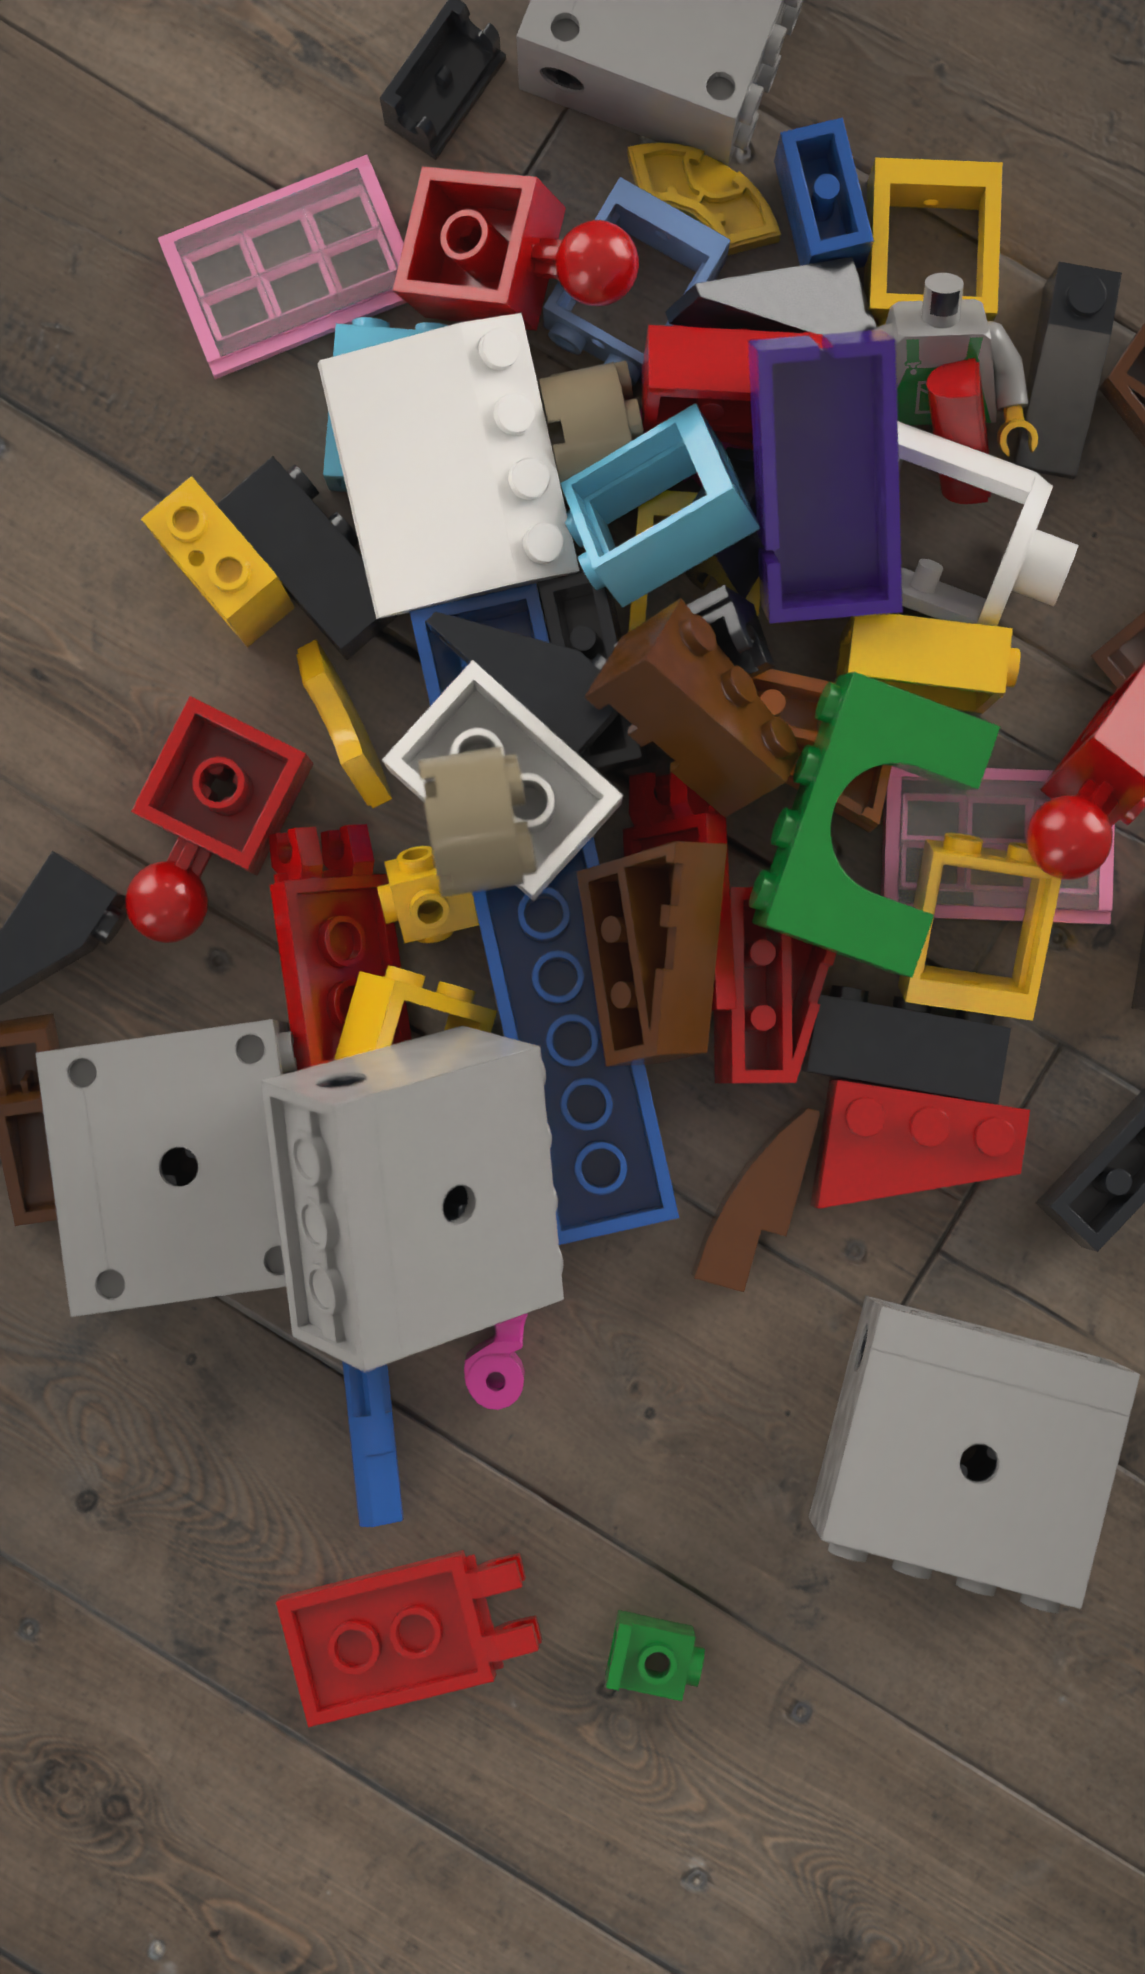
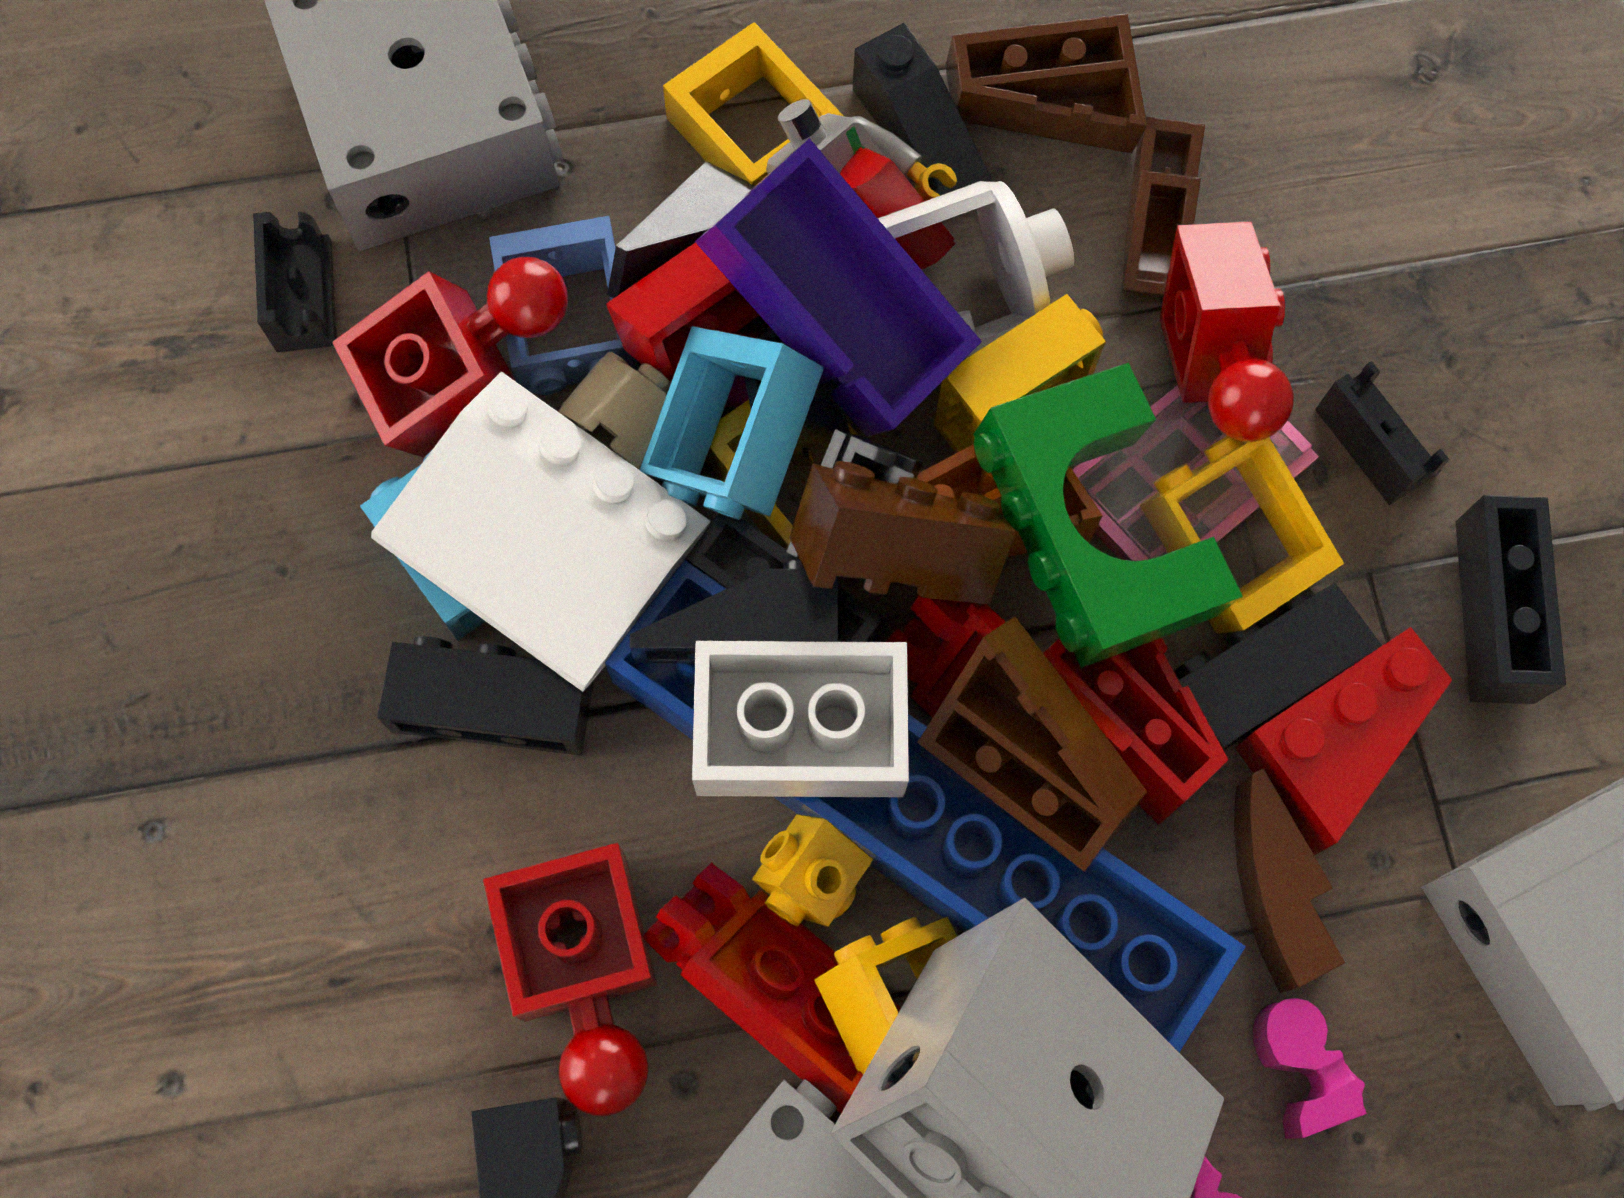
camera: 40 degrees left, 15 degrees down
(219, 561) = (396, 746): yellow window -> none
(287, 266) = (284, 506): clear piece -> none
(343, 724) = (624, 802): yellow tile -> none
(474, 822) = (820, 749): dark tan brick -> none
(661, 1308) = (1293, 1039): none -> dark pink leg
(705, 192) = (560, 204): yellow tile -> none
(823, 194) = (646, 137): blue brick -> none

